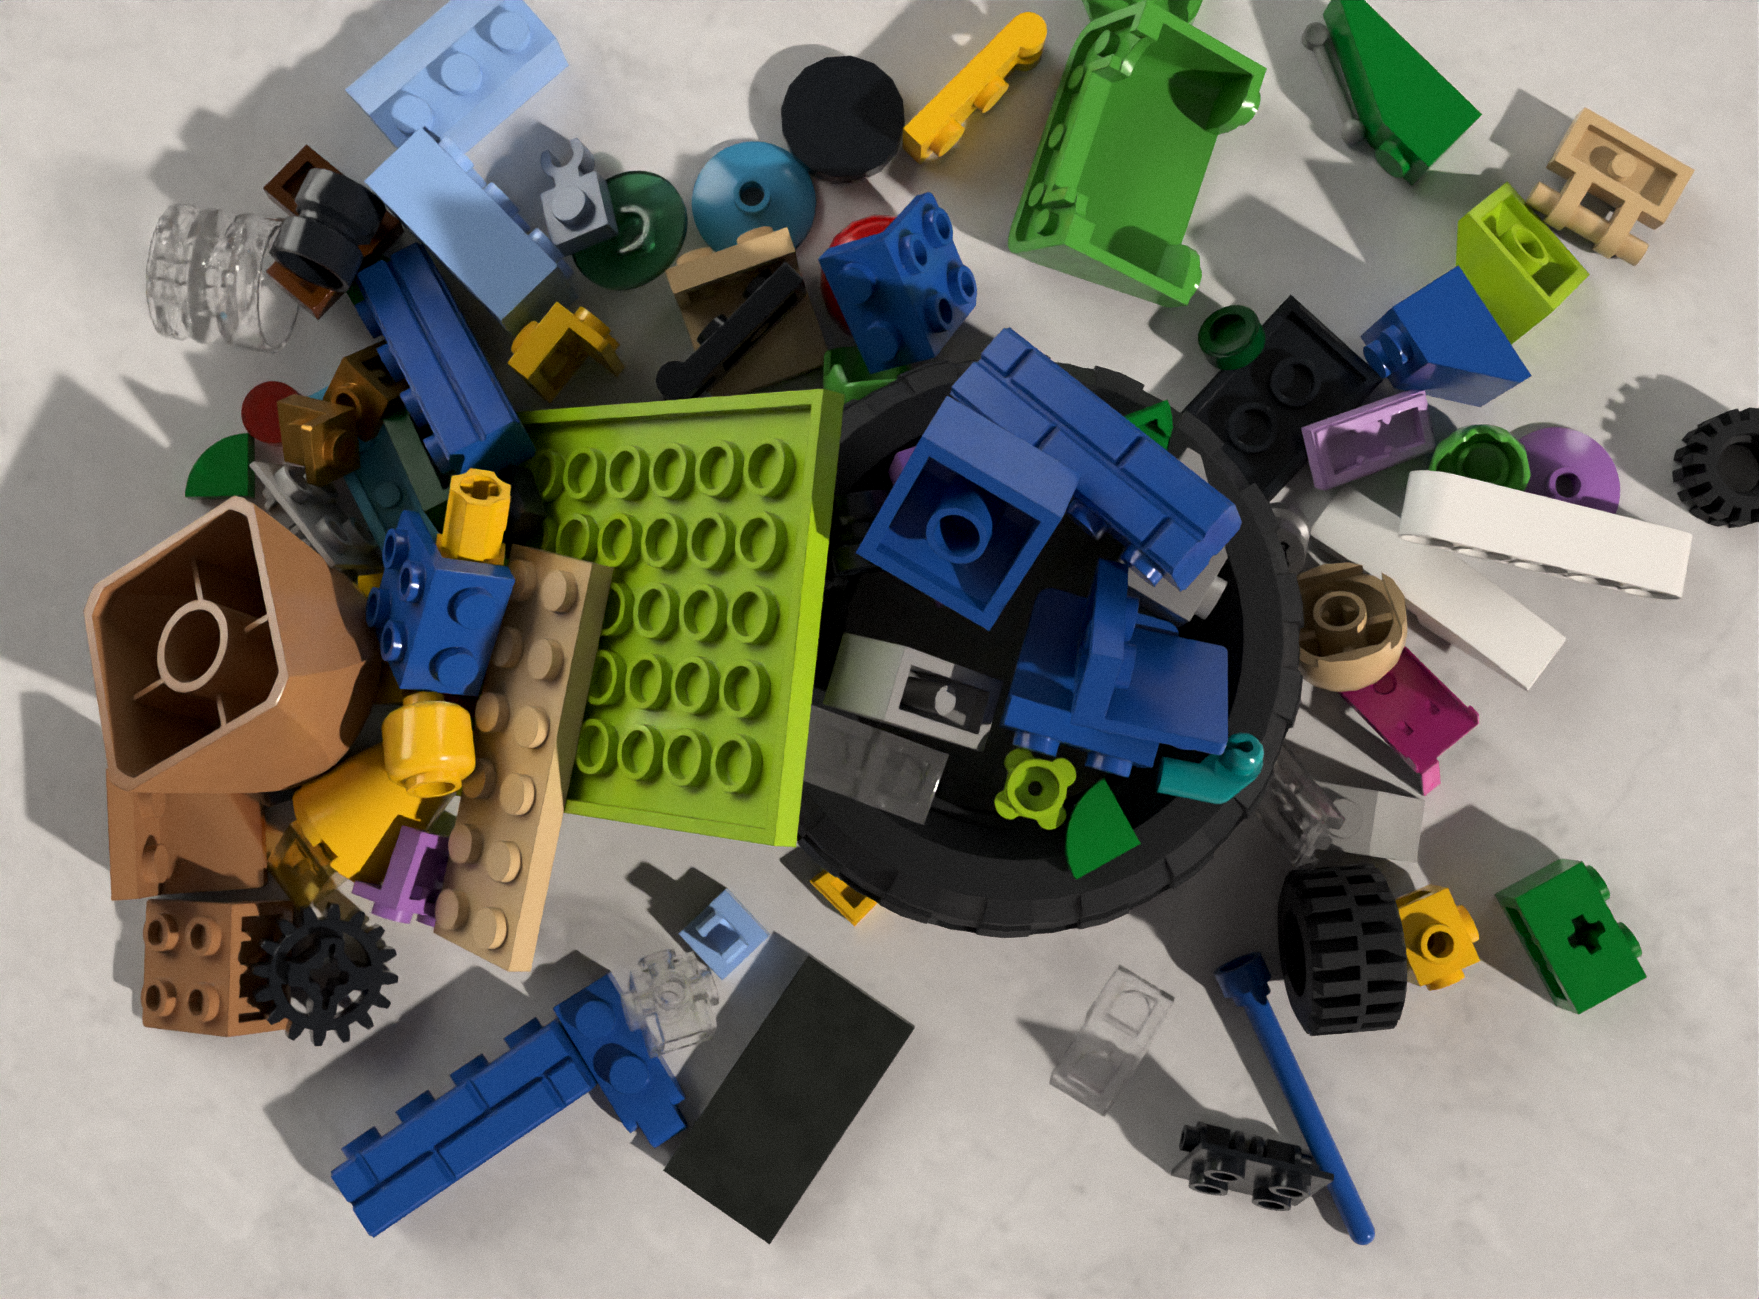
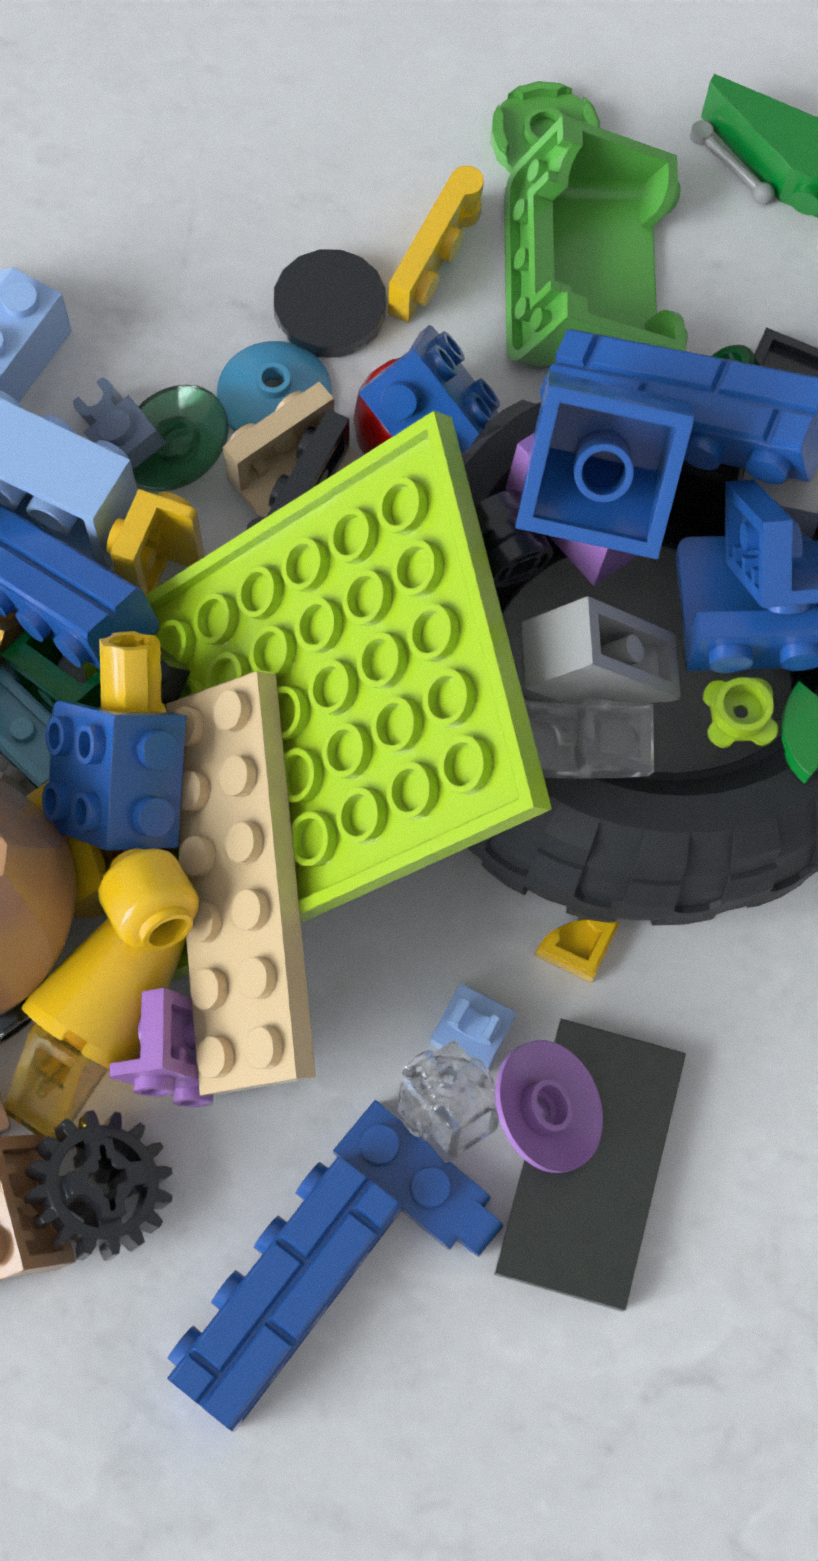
camera: 25 degrees left, 15 degrees down
(779, 1050) = (549, 1106): none -> medium lavender dish

